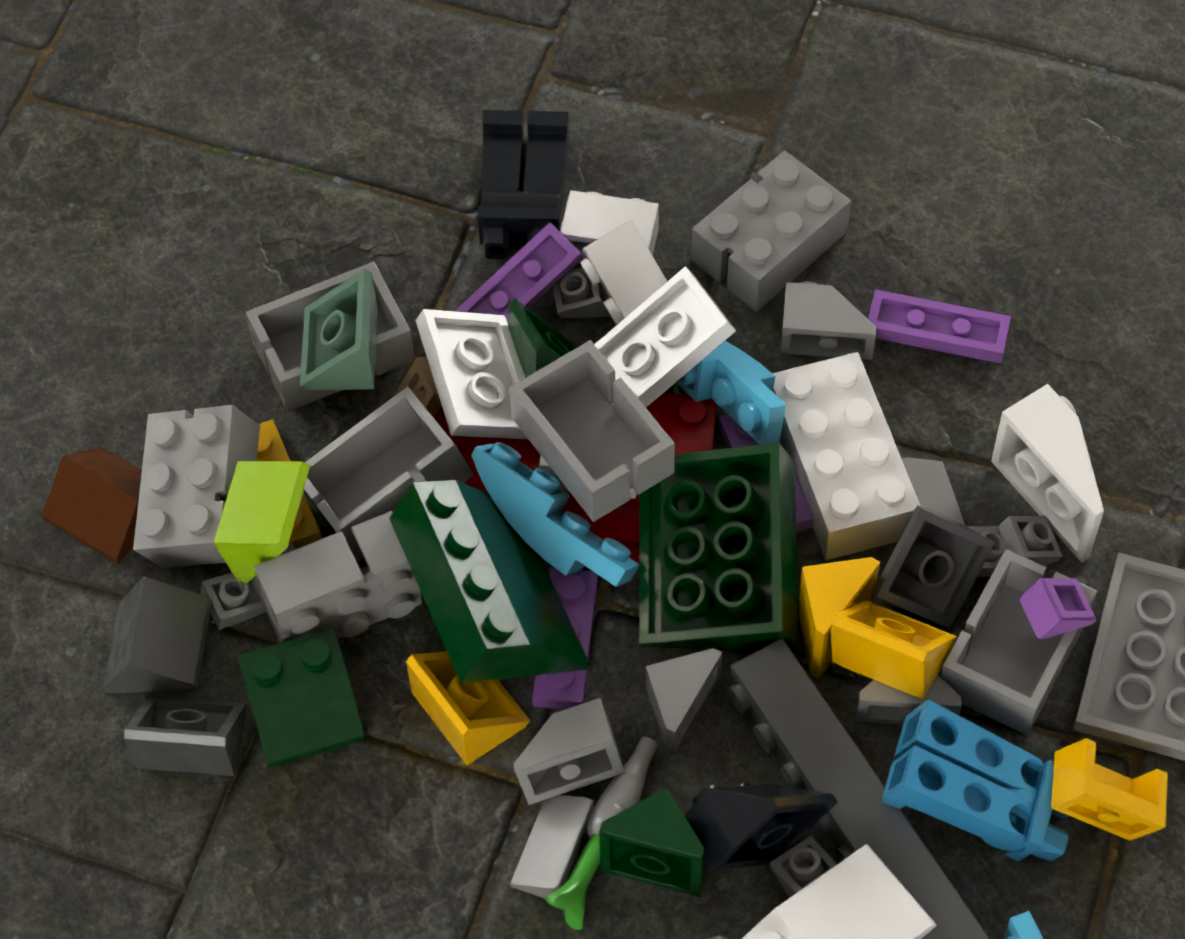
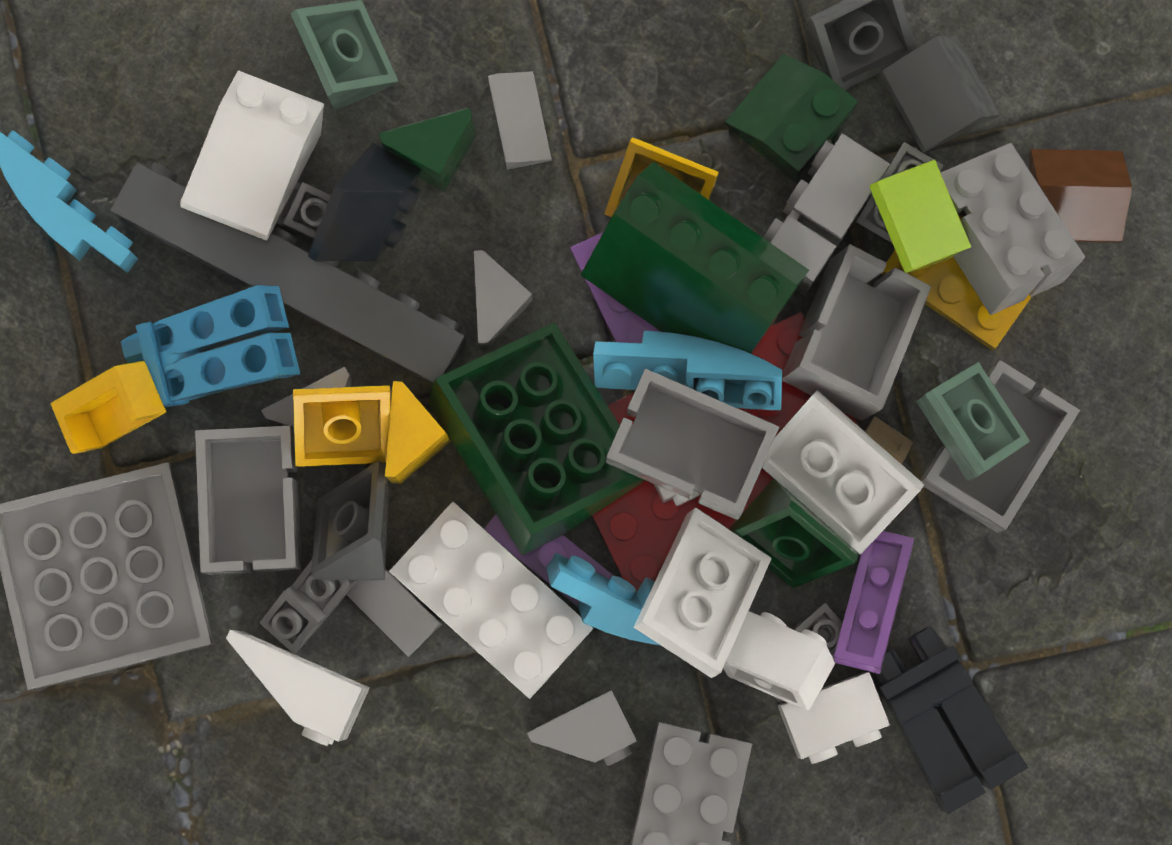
camera: 145 degrees right, 25 degrees up
(569, 753) = (548, 194): light grey slope -> none
(619, 795) = (486, 155): piece -> none
(939, 326) = (484, 792): medium lavender plate -> none
(1056, 607) = (222, 531): medium lavender slope -> none

